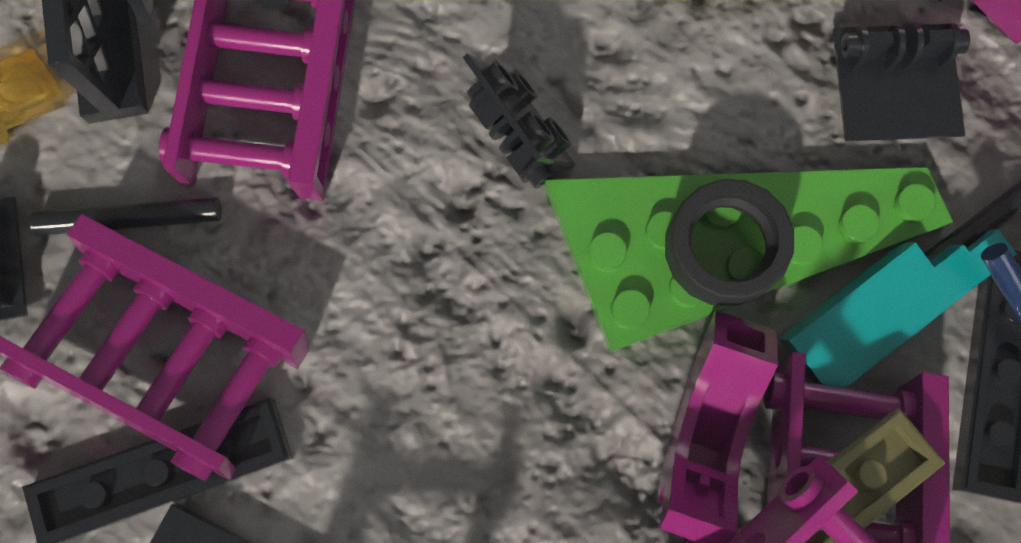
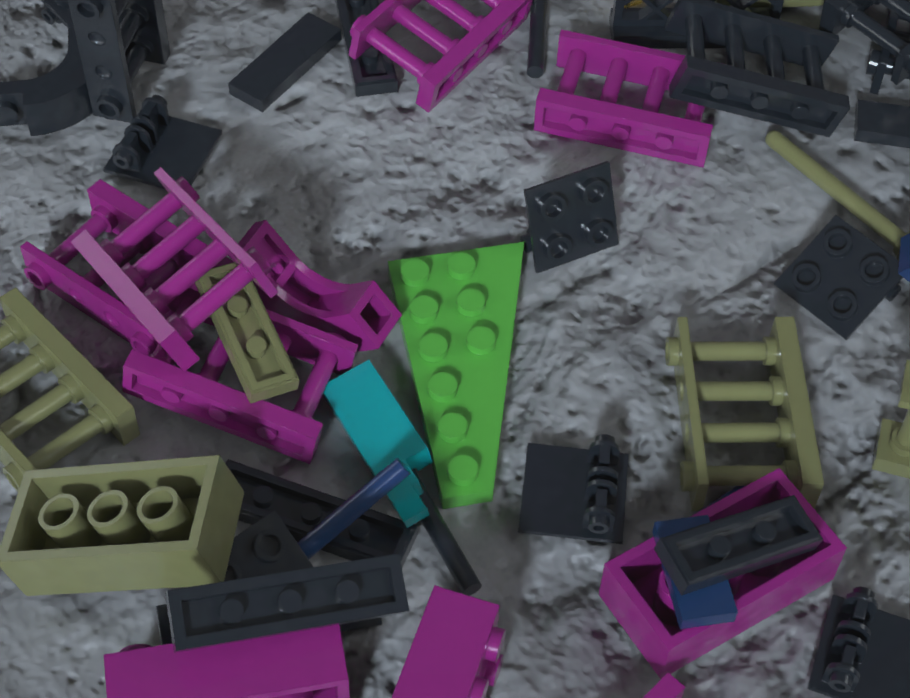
camera: 100 degrees right, 25 degrees down
(762, 209) = (449, 290): black tyre -> none

